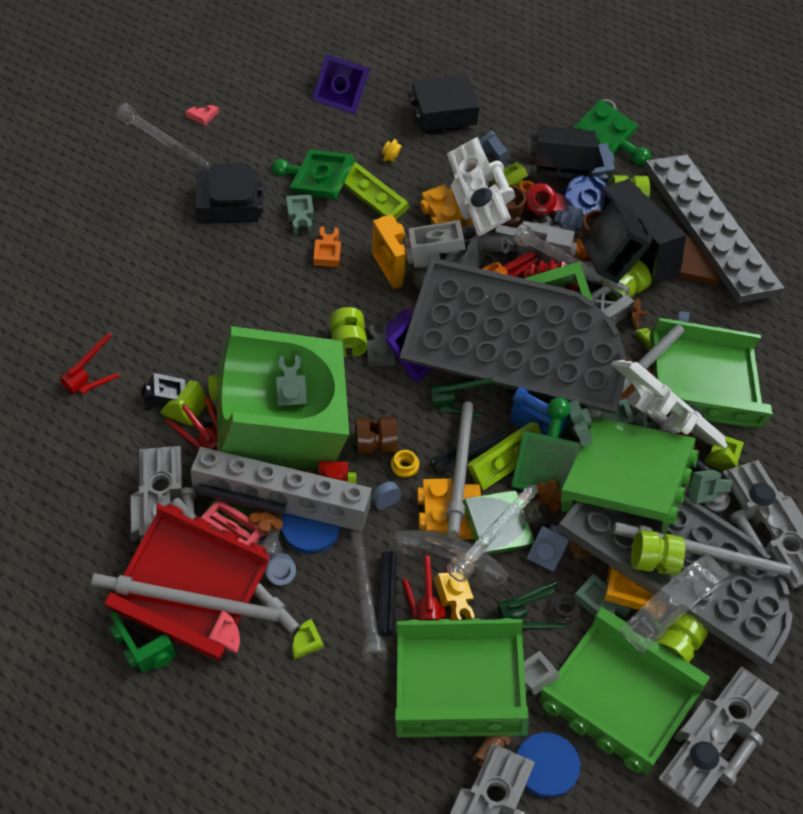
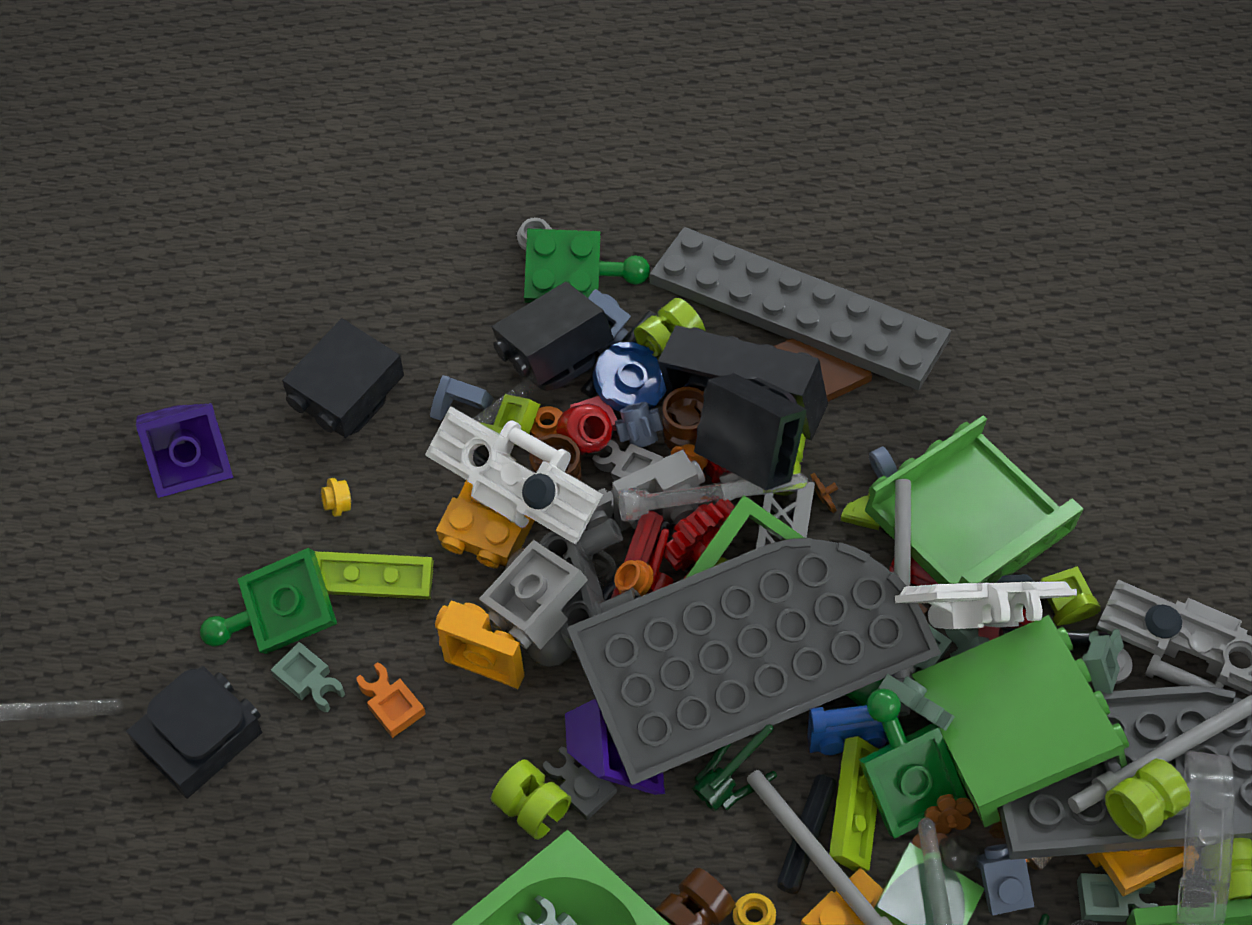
camera: 35 degrees left, 5 degrees up
(202, 115) = (35, 634): coral tile -> none

